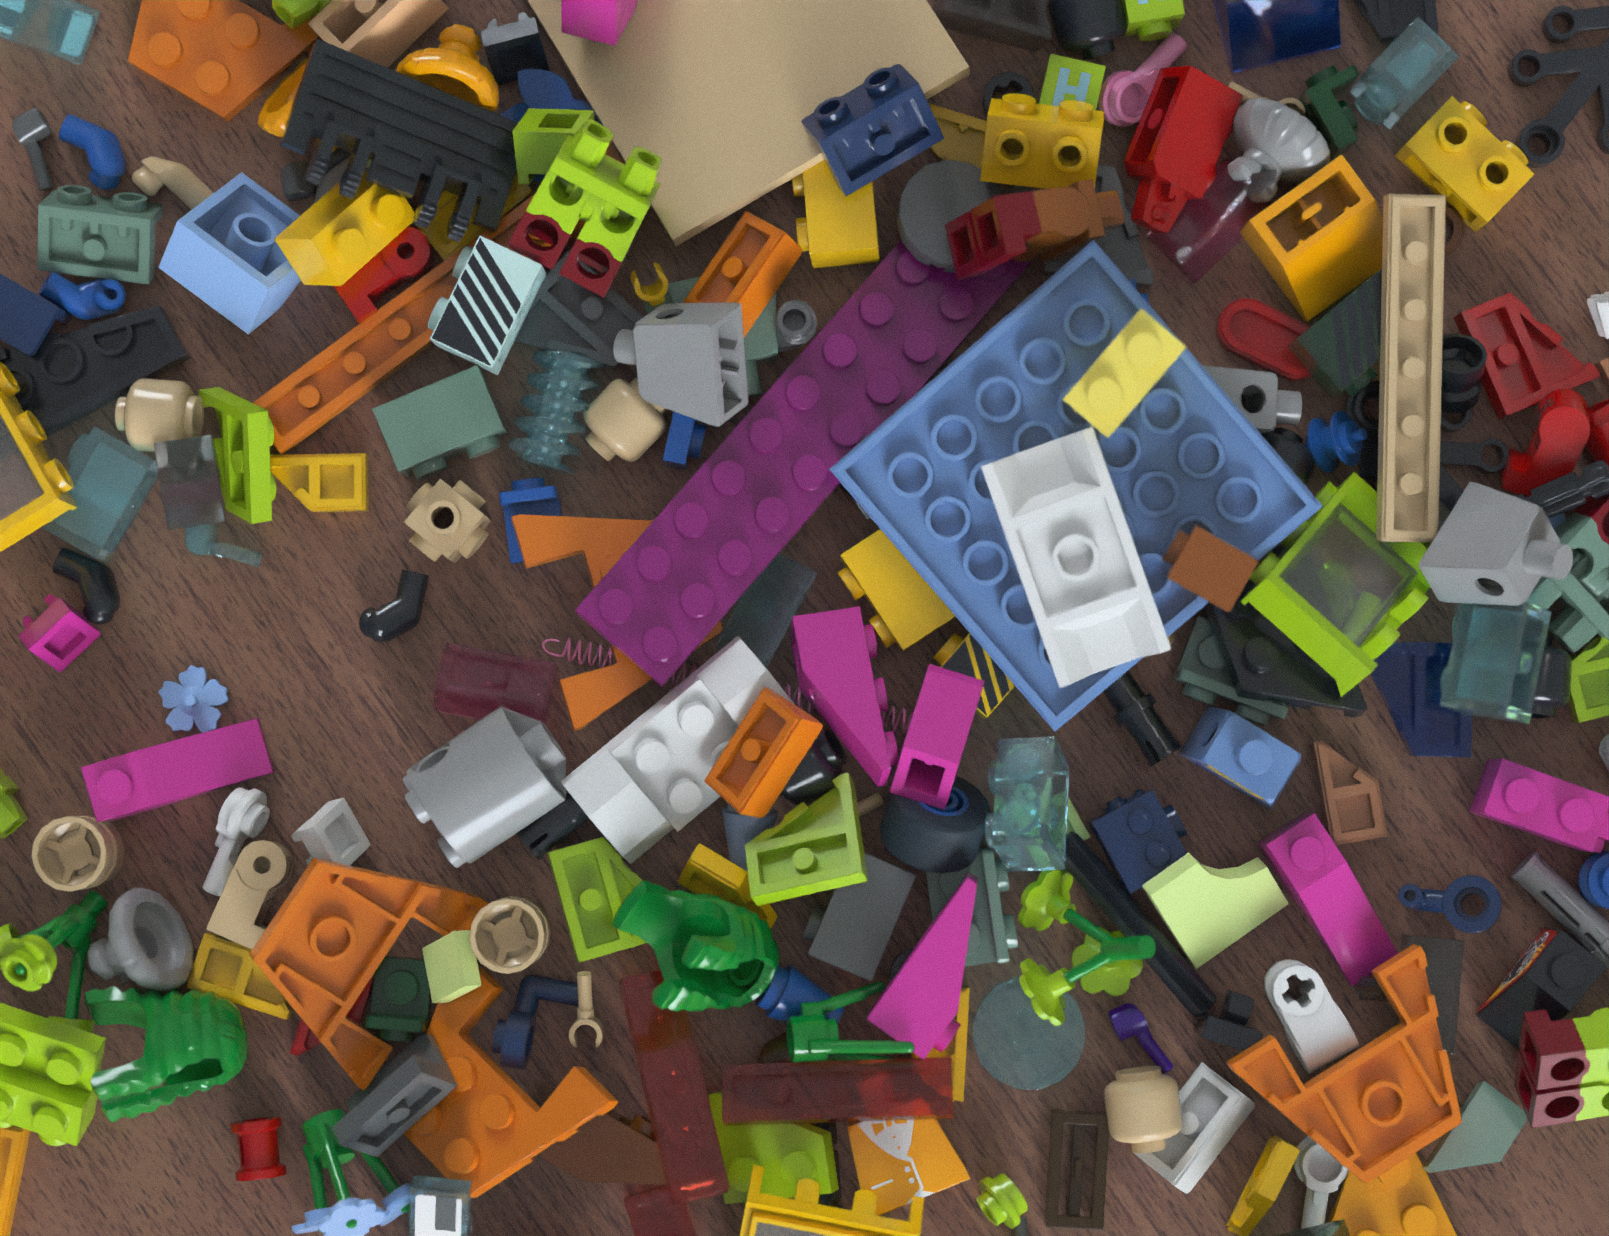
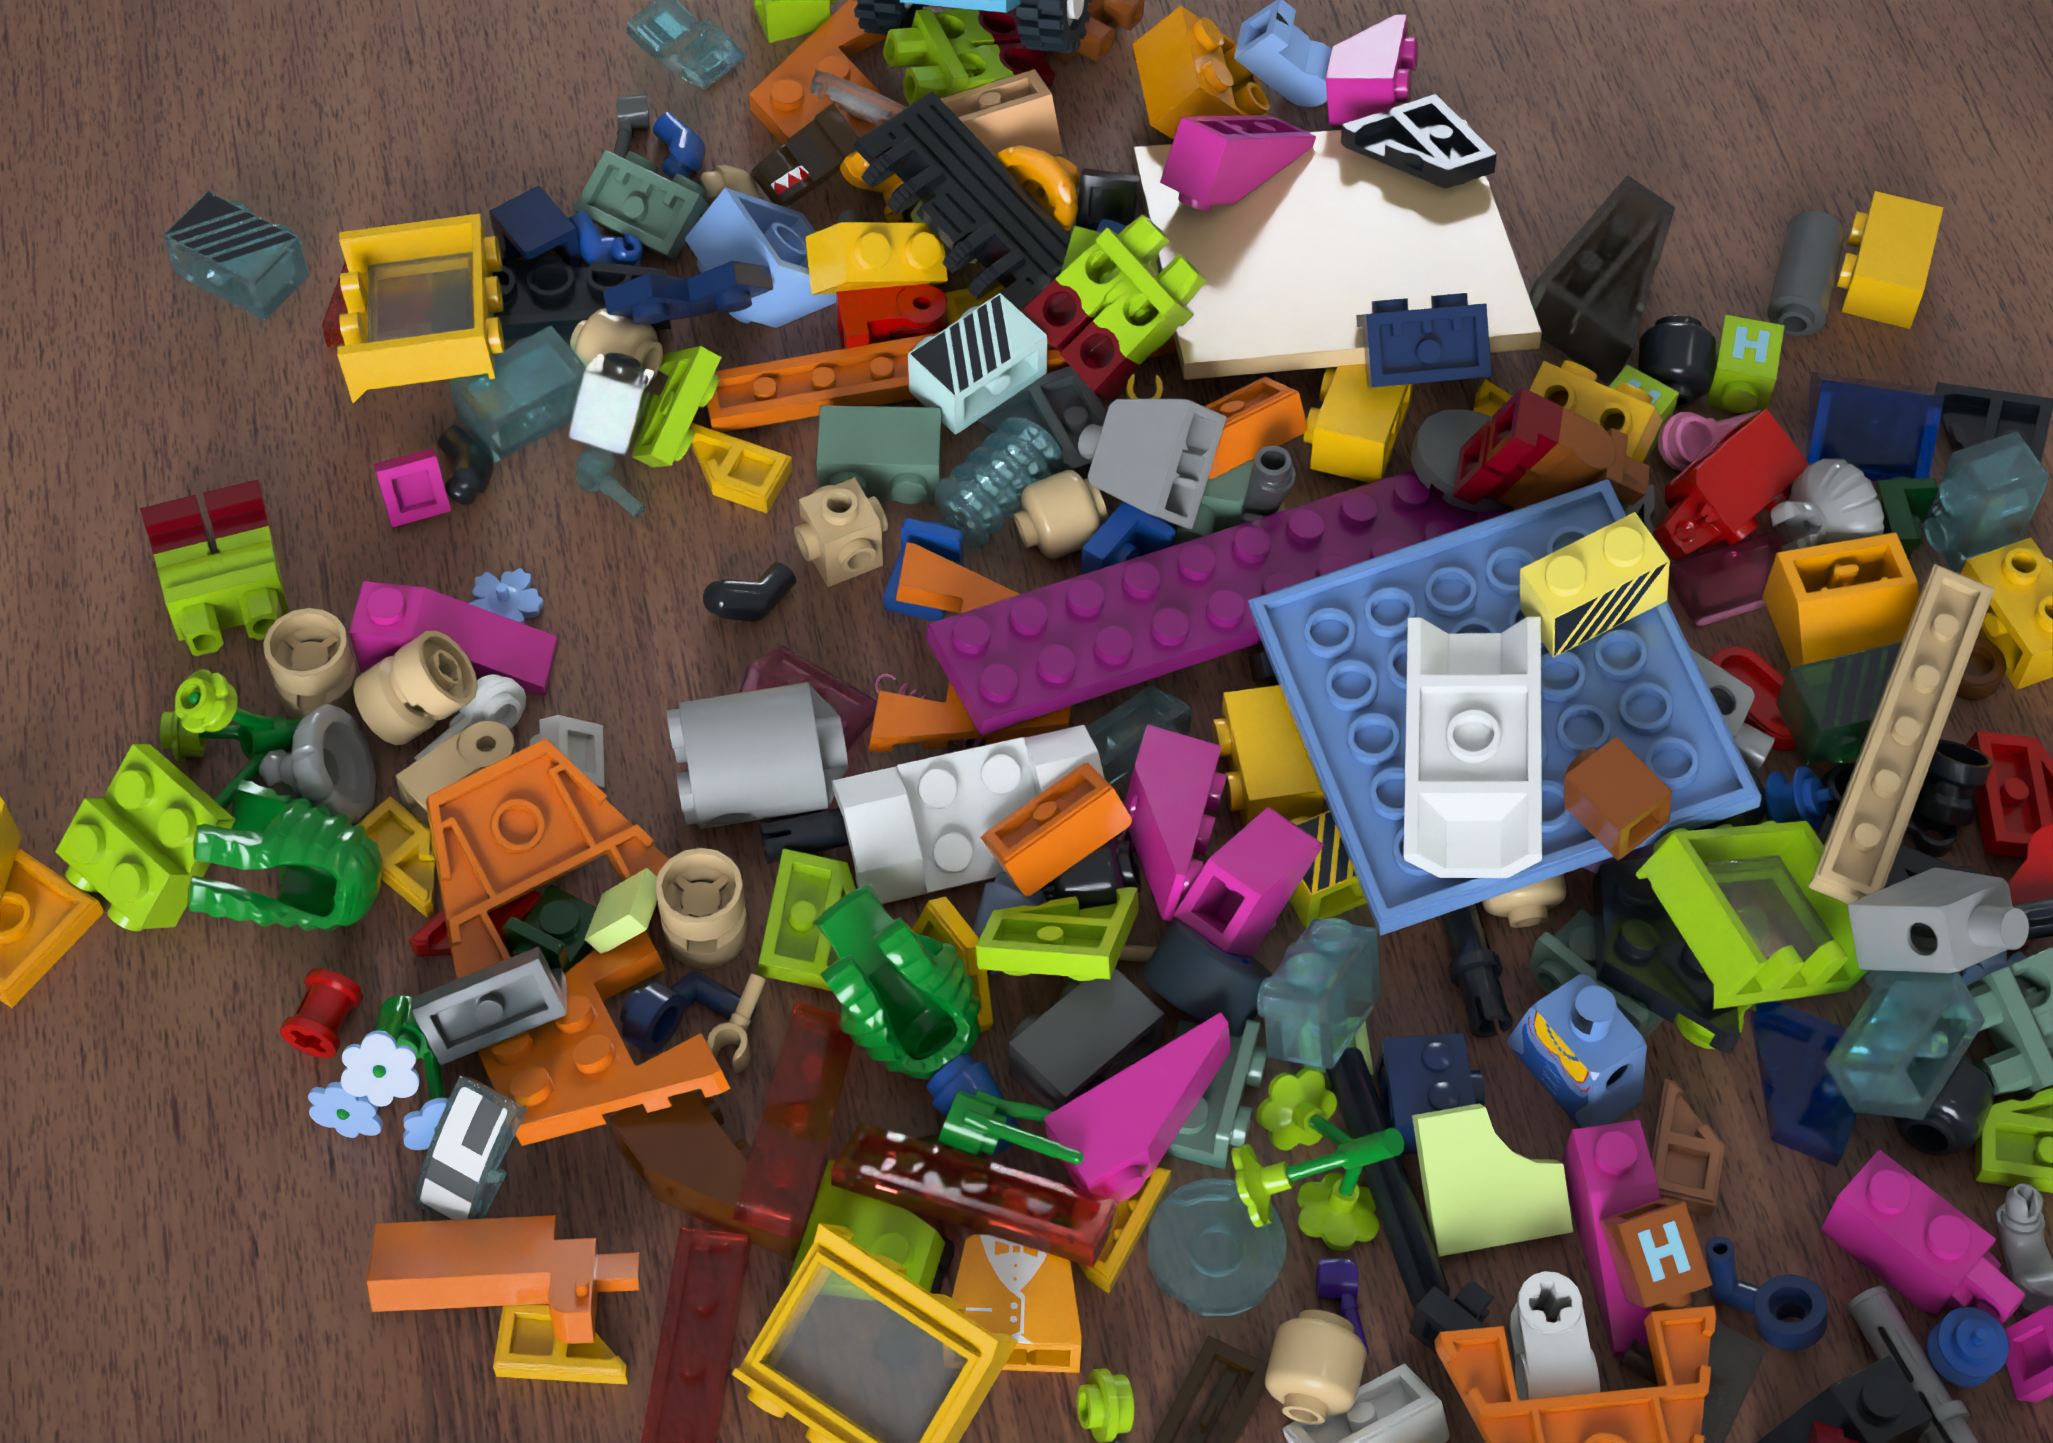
camera: 20 degrees right, 30 degrees down
(175, 371) = (662, 298): none -> dark blue plate
(177, 841) = (415, 687): none -> tan wheel
(224, 126) = (806, 158): none -> dark brown leg
(252, 60) = (854, 98): none -> clear tile
(1365, 924) = (1656, 1254): none -> dark orange brick

